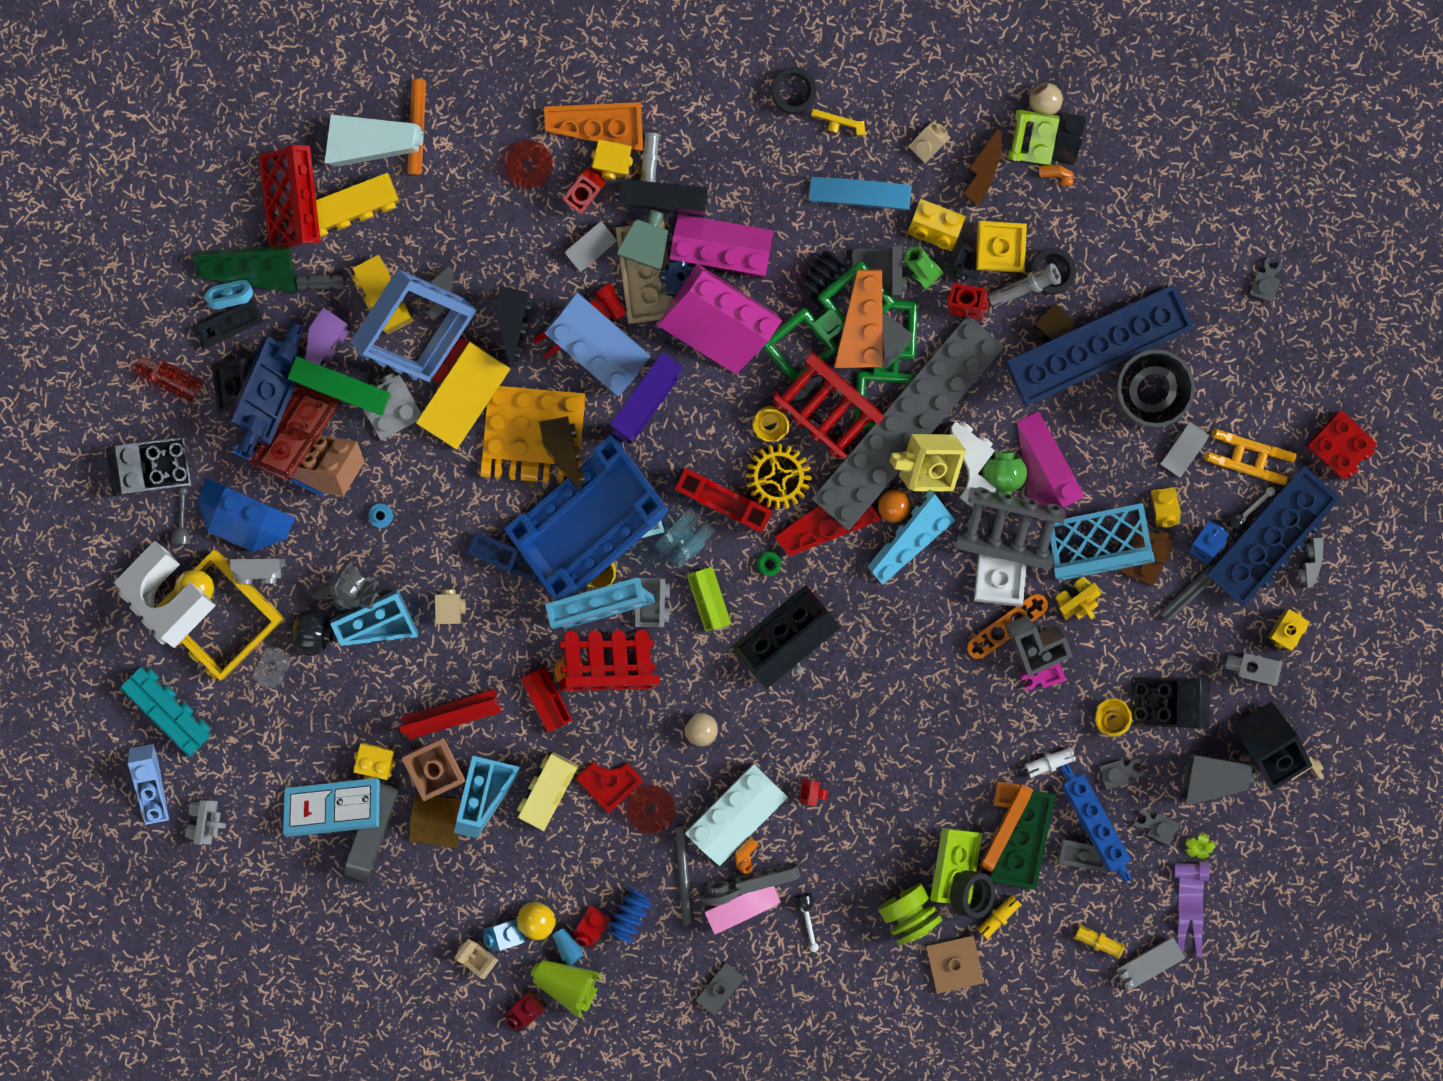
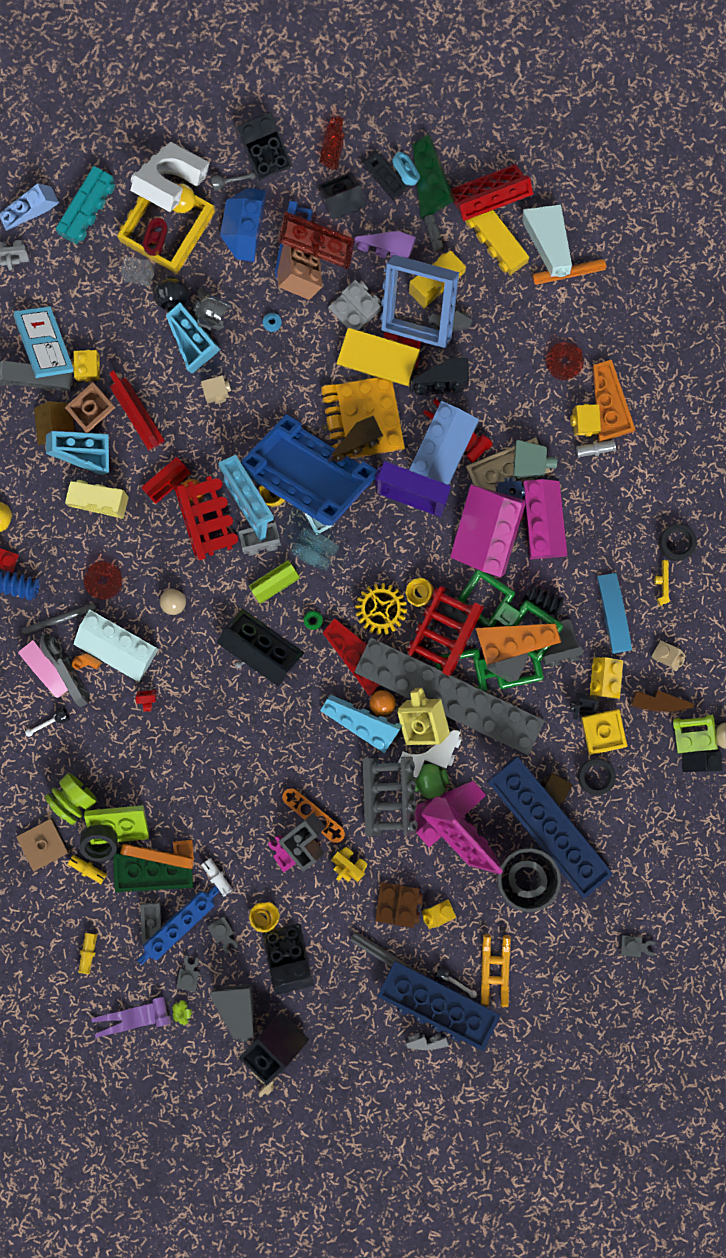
camera: 80 degrees right, 5 degrees down
(236, 634) = (155, 238): none -> dark red plate
(265, 390) = (342, 210): dark blue plate -> none
(265, 569) = (207, 240): light grey slope -> none
(339, 385) = (360, 263): green slope -> none
(501, 556) = (265, 415): dark blue slope -> none
(577, 196) = (557, 405): red head -> none
(590, 246) = (516, 422): light grey slope -> none
(609, 785) = (113, 544): red tile -> none
(662, 197) = (569, 465): black slope -> none
(723, 500) = (351, 571): red arch -> none
(923, 268) = (571, 675): bright green piece -> none
(959, 298) = (555, 716): red head -> none
(999, 581) = (346, 800): white plate -> none
(1034, 282) = (584, 763): light grey pin -> none
(1057, 171) = (674, 760): orange arm -> none
(1080, 454) = (461, 835): none -> dark pink slope
(1103, 563) = (382, 877): medium azure fence -> none
(1150, 963) = (80, 998): light grey hinge -> none
(1185, 449) = (487, 917): light grey slope -> none
(1209, 542) = (420, 955): blue head -> none
(1267, 672) = (331, 1029): light grey torso -> none
(1279, 632) = (360, 1040): yellow head -> none
(1341, 445) = (524, 1041): red brick -> none

